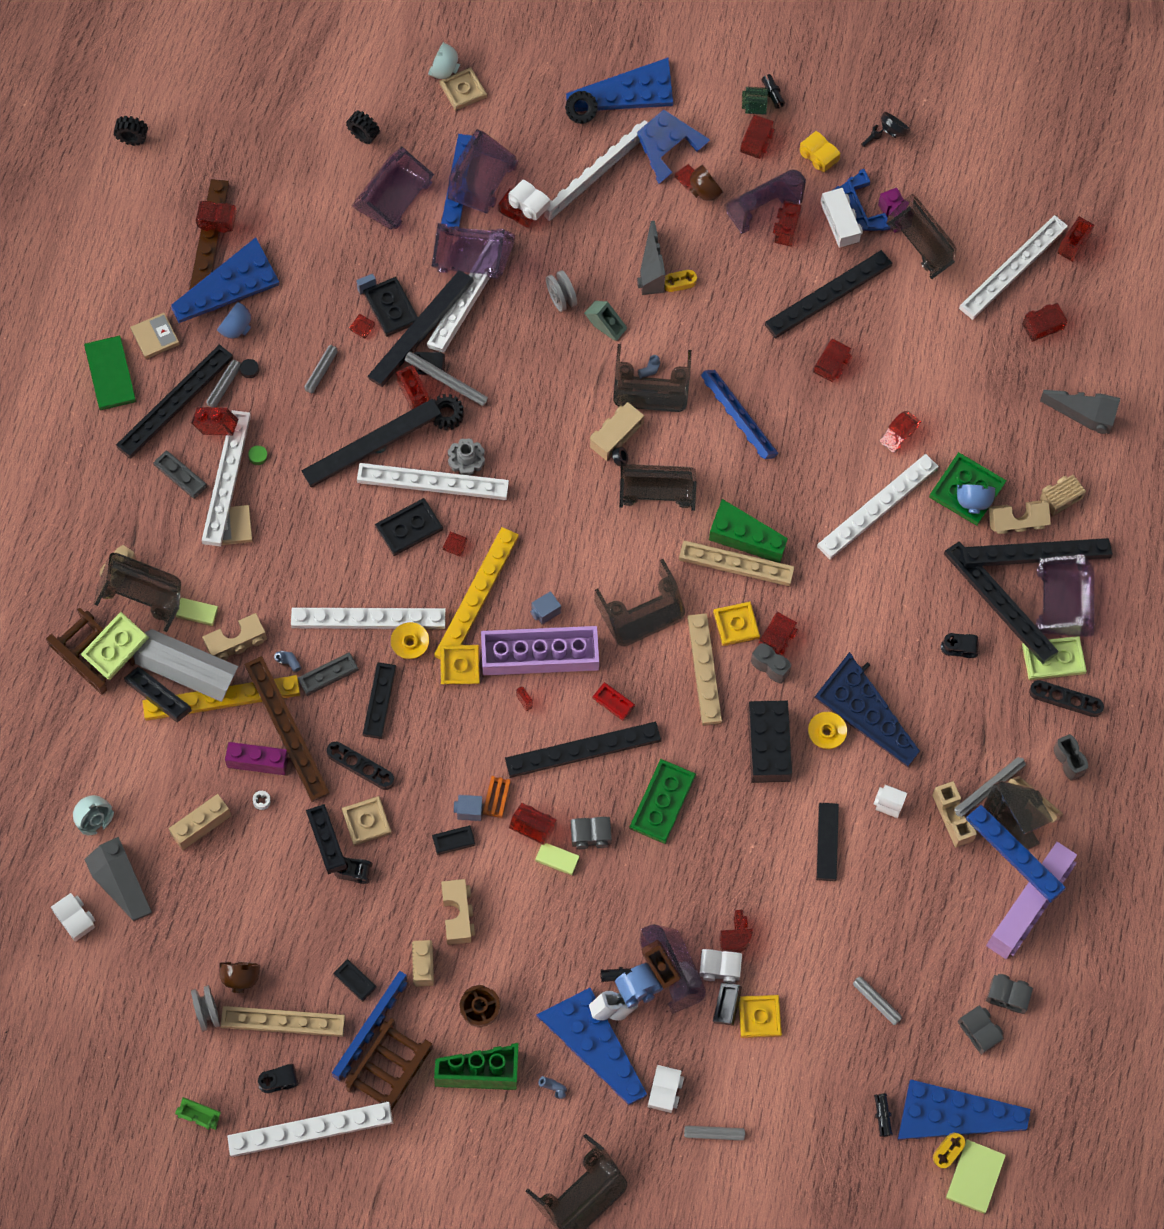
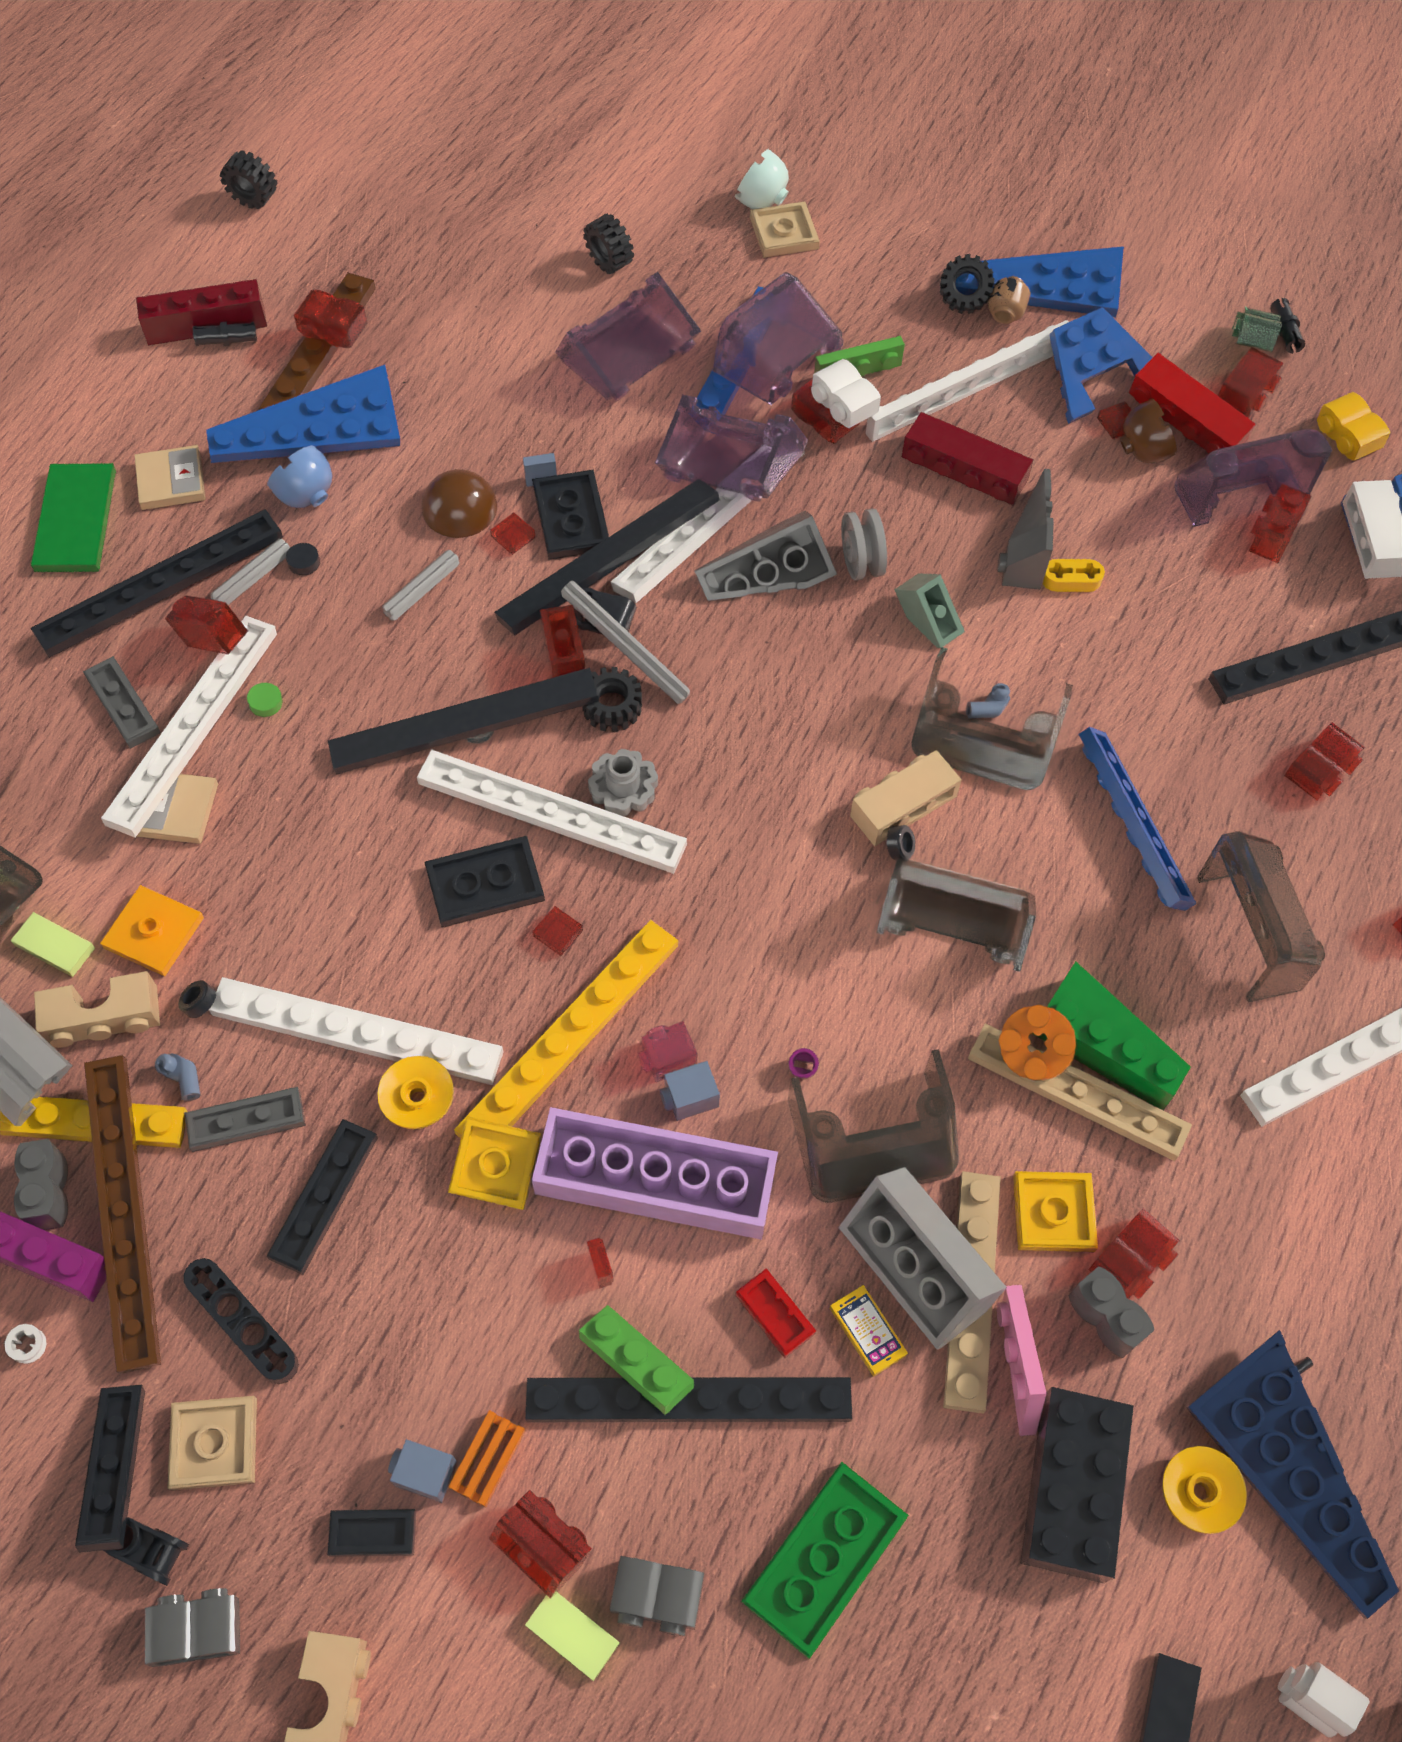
camera: 15 degrees right, 5 degrees down
(135, 226) = (173, 314): none -> dark red brick
(152, 237) = (224, 333): none -> black pin
(241, 726) = (40, 1191): none -> dark grey brick
(245, 592) = (152, 930): none -> light orange plate
(283, 621) = (197, 999): none -> black tile
(325, 315) = (459, 504): none -> reddish brown piece
(387, 896) = (192, 1629): none -> dark grey brick
(513, 309) = (774, 560): none -> dark grey wedge
(528, 591) = (667, 1050): none -> clear pink brick
(531, 171) = (867, 357): none -> bright green plate
(553, 736) = (636, 1359): none -> bright green plate
(598, 577) = (806, 1056): none -> magenta hinge
(605, 222) = (967, 458): none -> dark red brick
(608, 112) = (1009, 300): none -> medium nougat head
(659, 699) = (868, 1330): none -> tile
(676, 658) = (921, 1256): none -> light grey slope
(715, 554) = (1015, 1042): none -> orange plate
(726, 162) = (1190, 406): none -> red brick
(734, 694) = (1023, 1359): none -> bright pink wing
(813, 450) = (1271, 910): none -> clear smoke windscreen

